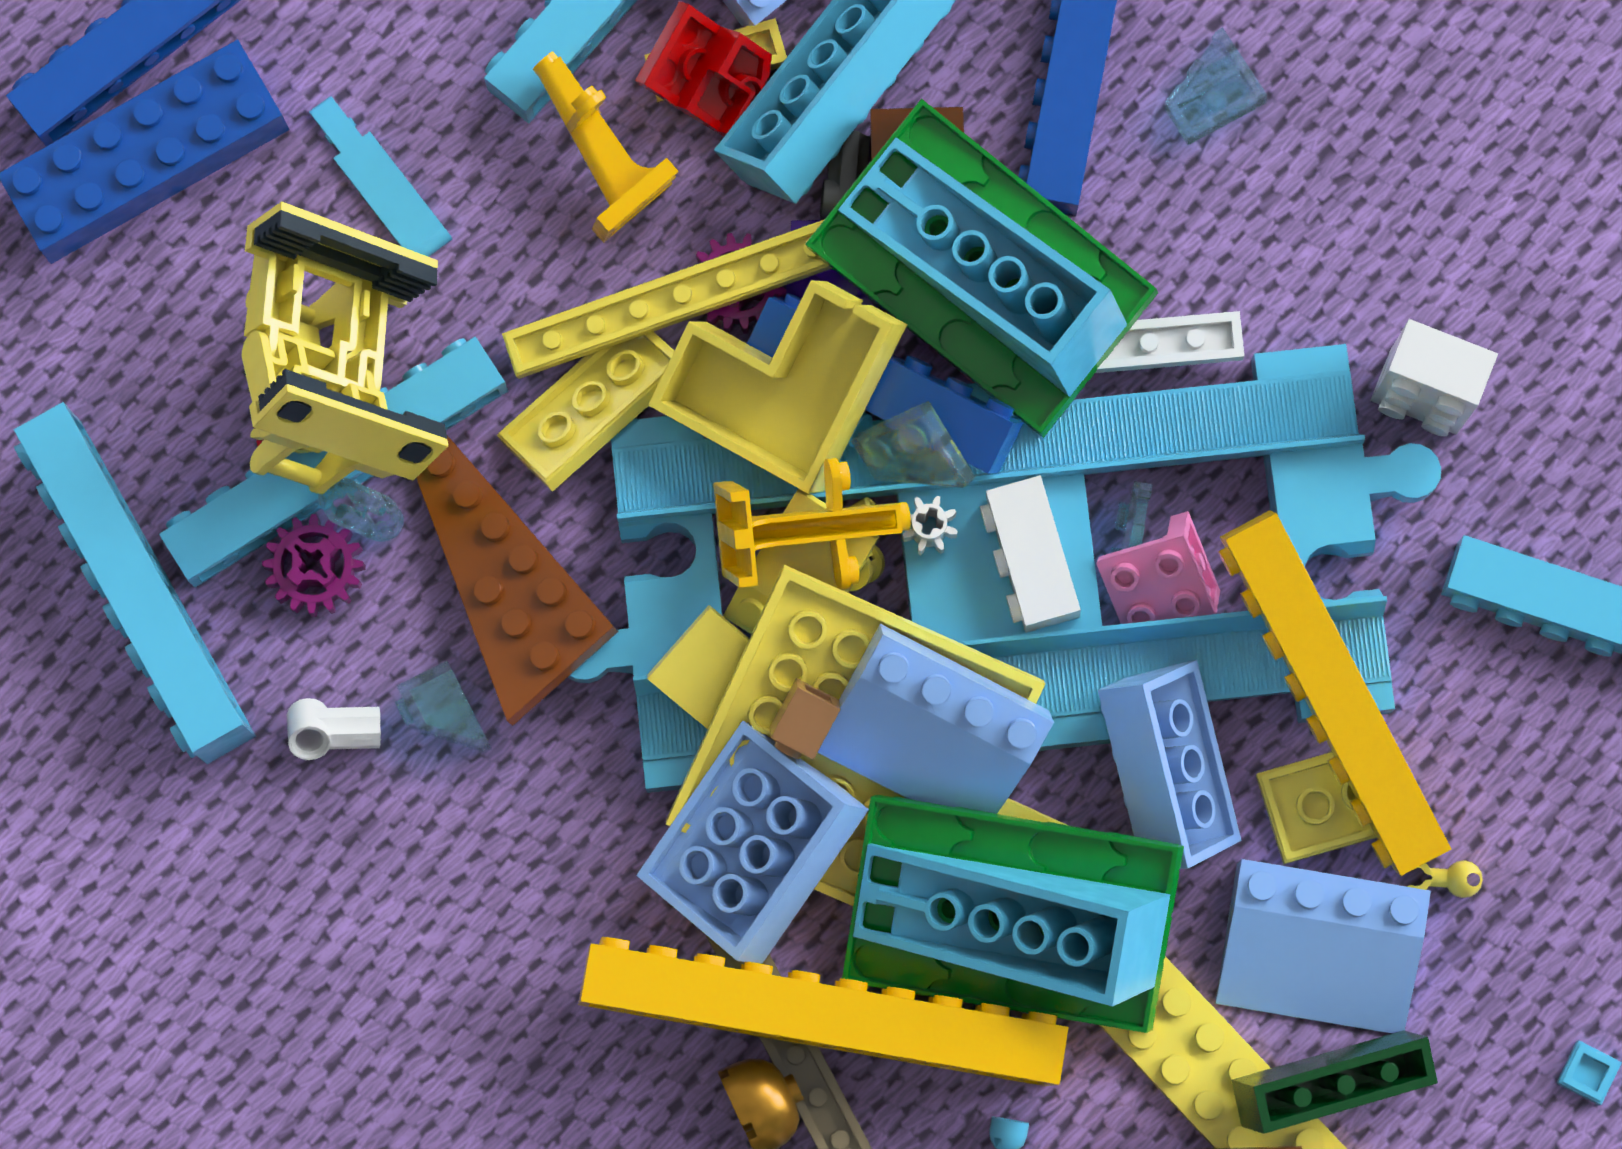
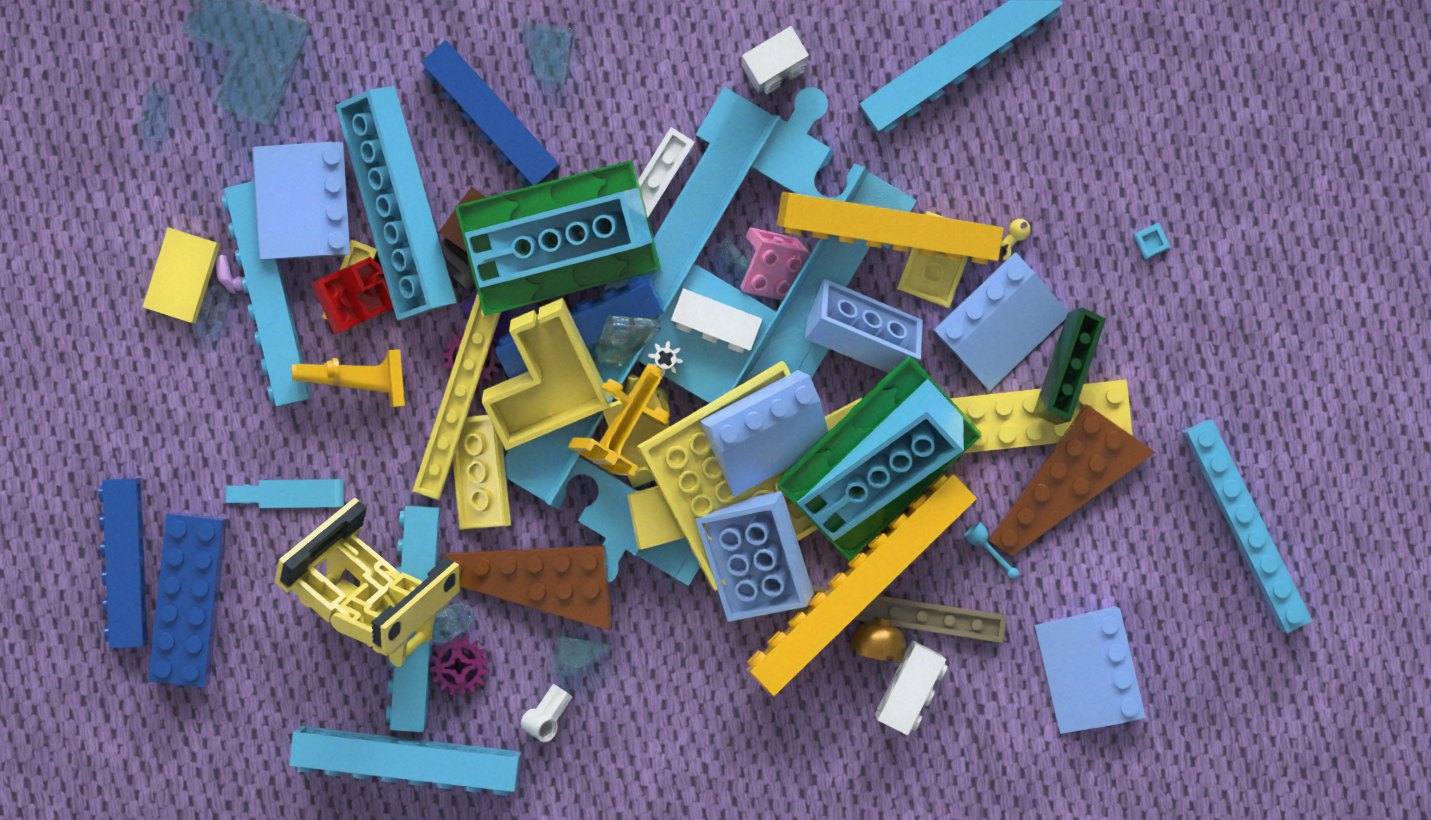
camera: 55 degrees left, 10 degrees up
(803, 720) = (718, 491): medium nougat brick -> none

